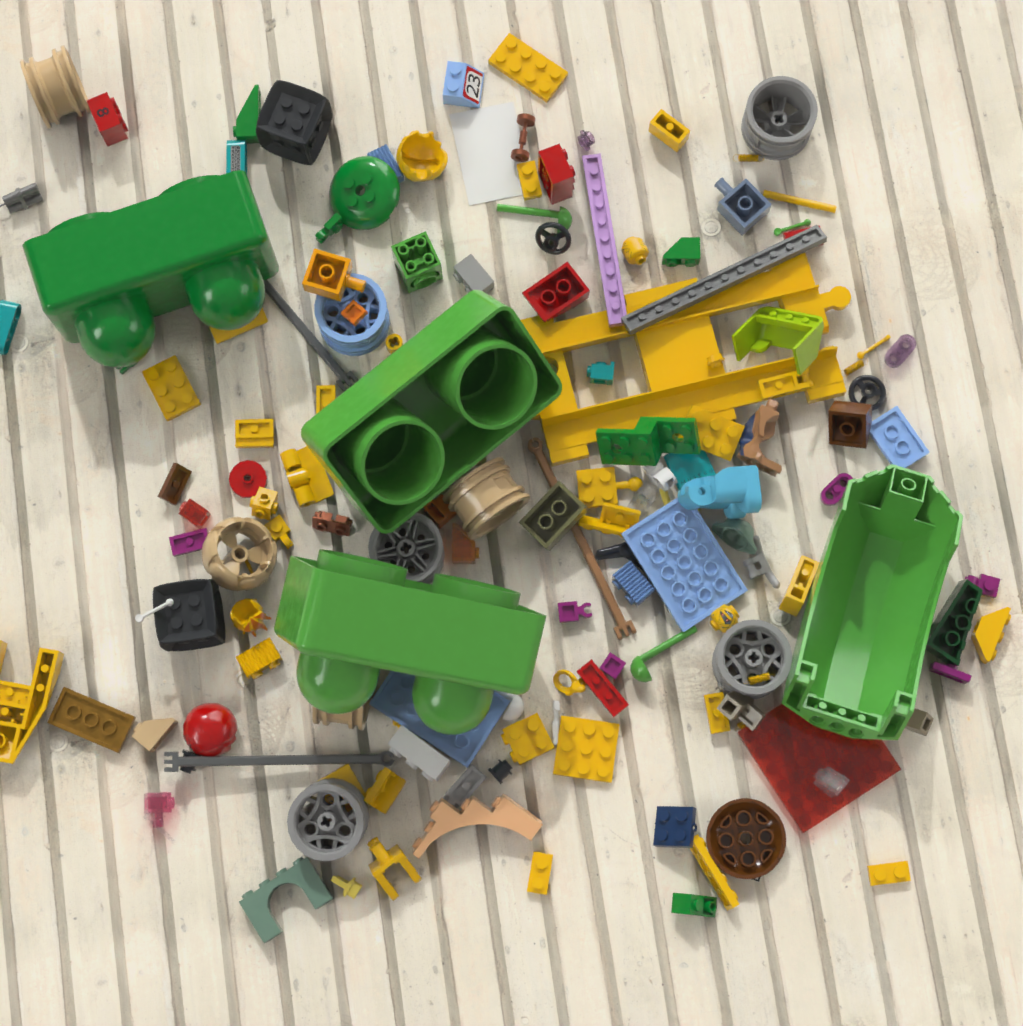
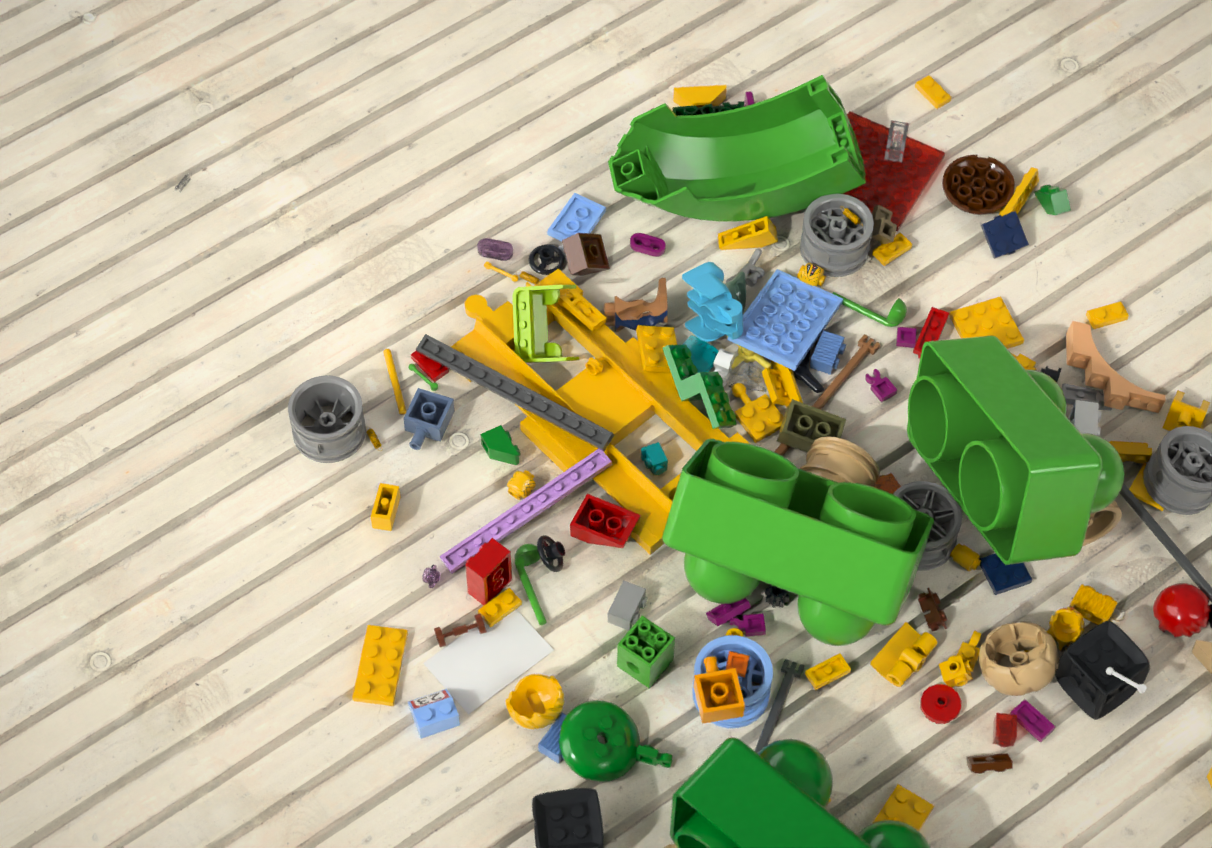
camera: 120 degrees left, 20 degrees down
(254, 433) = (895, 719): yellow plate -> none

